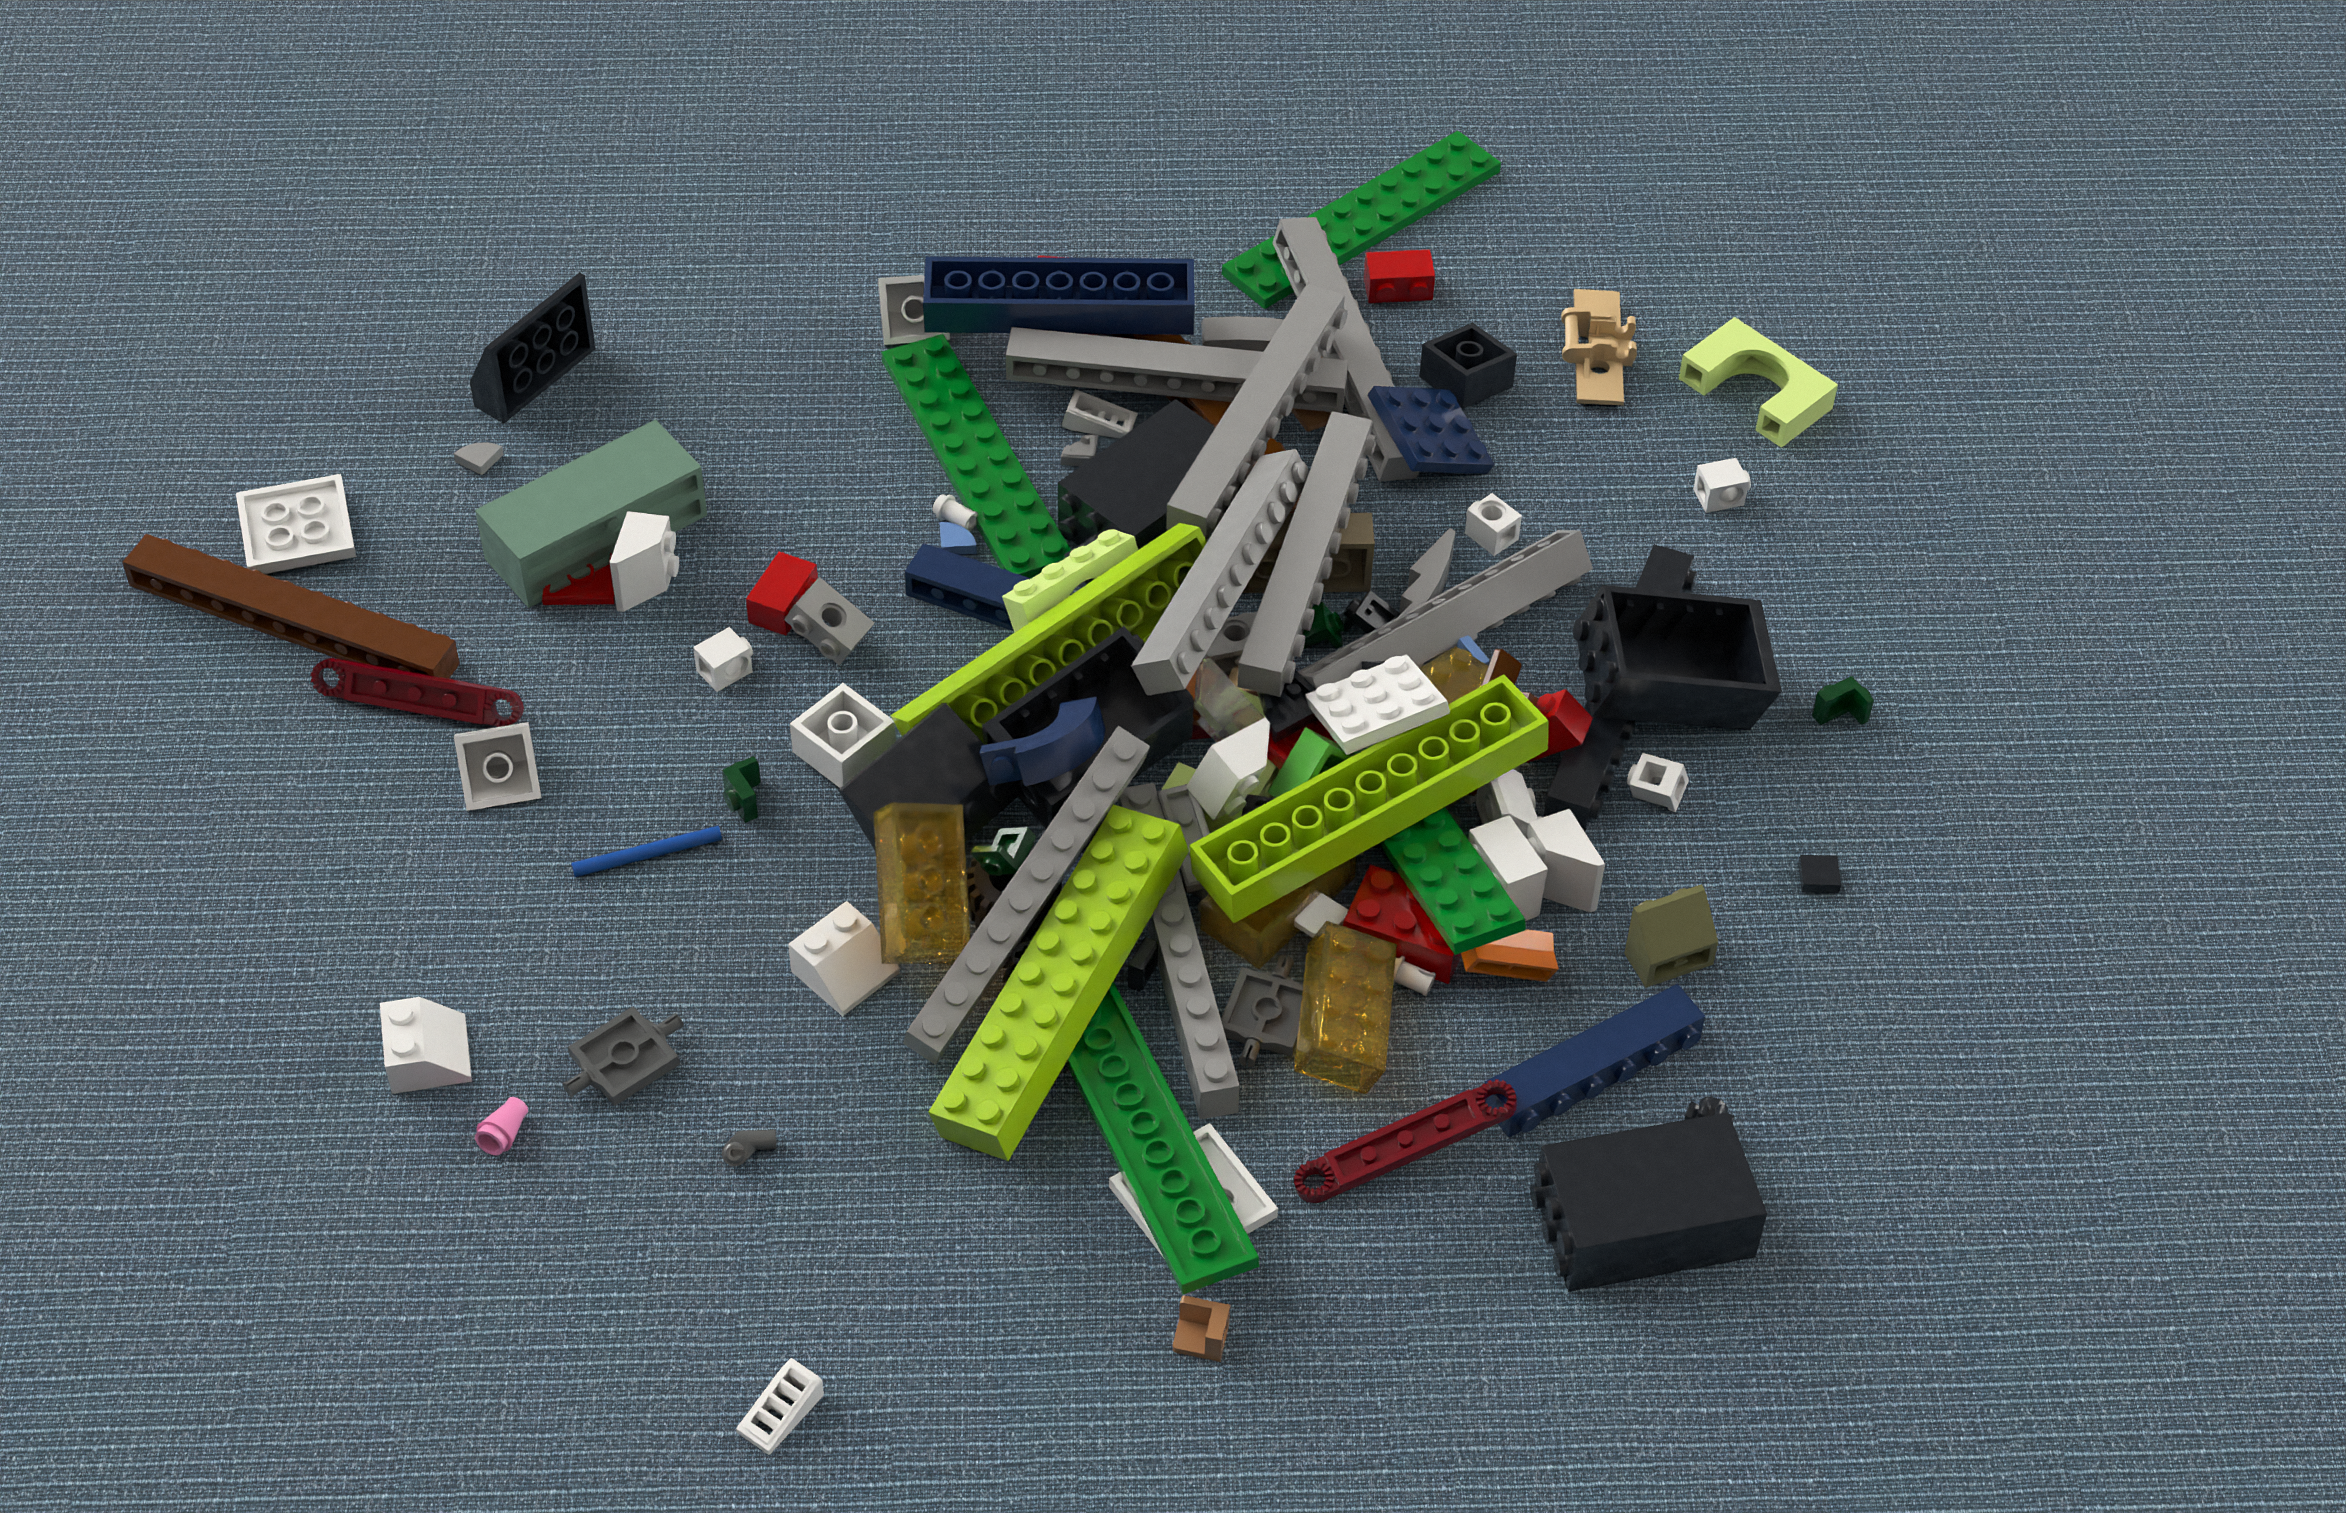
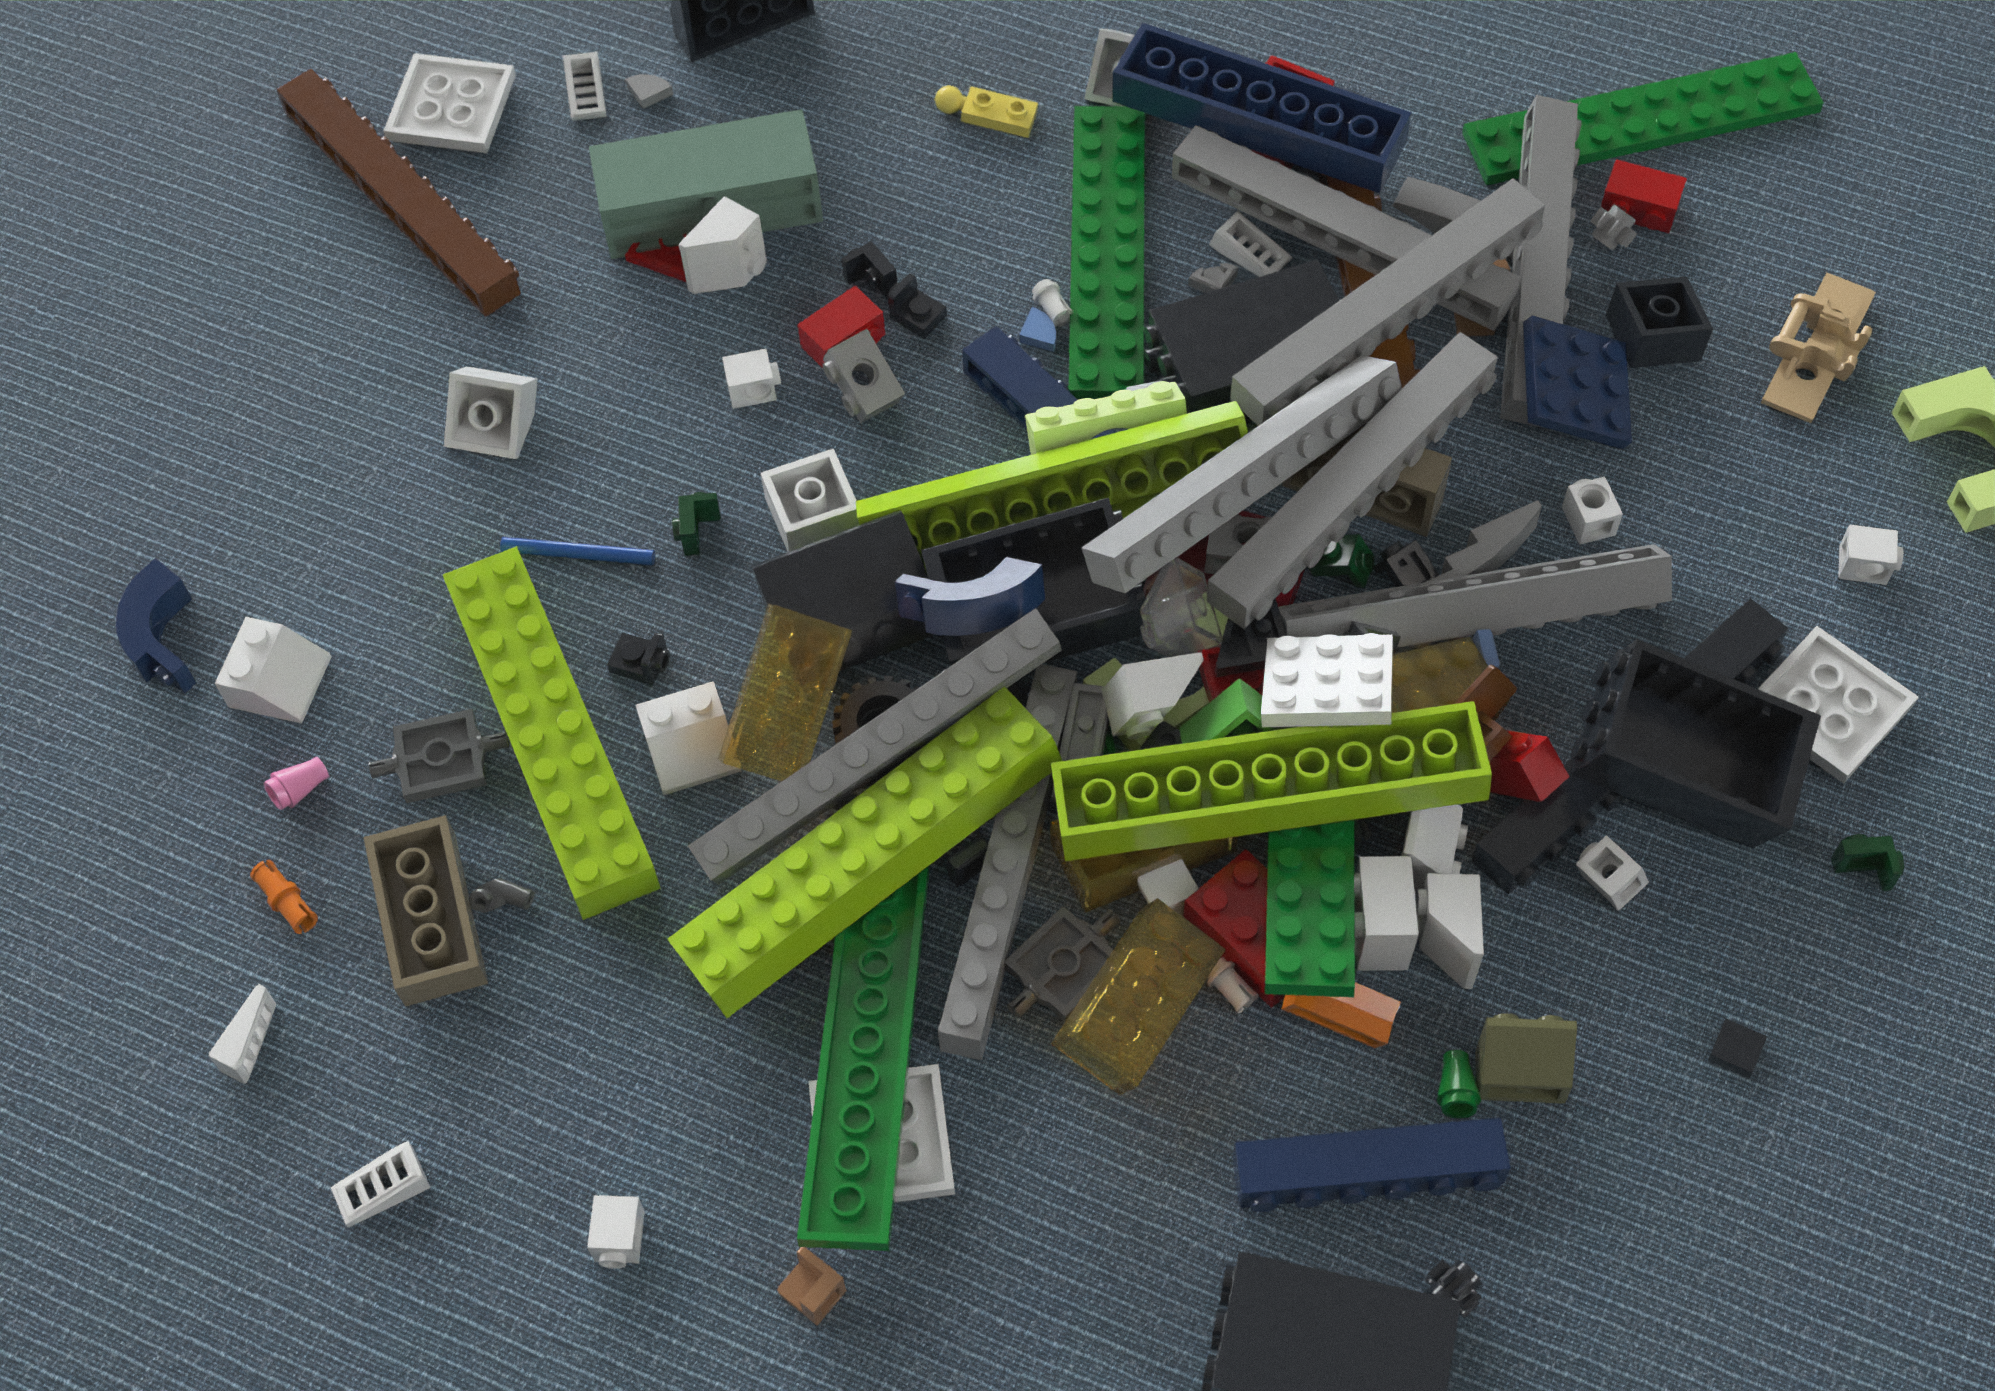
camera: 30 degrees right, 10 degrees up
(267, 1031) = (140, 621): none -> dark blue arch
(410, 451) = (582, 64): none -> white slope
(417, 692) = (461, 311): dark red plate -> none
(549, 1220) = (284, 896): none -> orange pin
(584, 1352) = (241, 1041): none -> white slope
(693, 1177) = (425, 911): none -> dark tan brick
(717, 997) = (551, 734): none -> lime brick
(758, 915) = (639, 658): none -> black bracket
(781, 533) = (872, 265): none -> black bracket
(805, 378) = (989, 109): none -> light yellow plate
(835, 557) = (914, 308): none -> black bracket
(1007, 851) = (880, 693): dark green bracket -> none
(1012, 1354) = (616, 1230): none -> white brick
(1390, 306) = (1613, 227): none -> light grey gear
(1405, 1141) = (1122, 1171): dark red plate -> none
(1628, 979) = (1457, 1088): none -> green cone
(1780, 589) = (1849, 693): none -> white plate

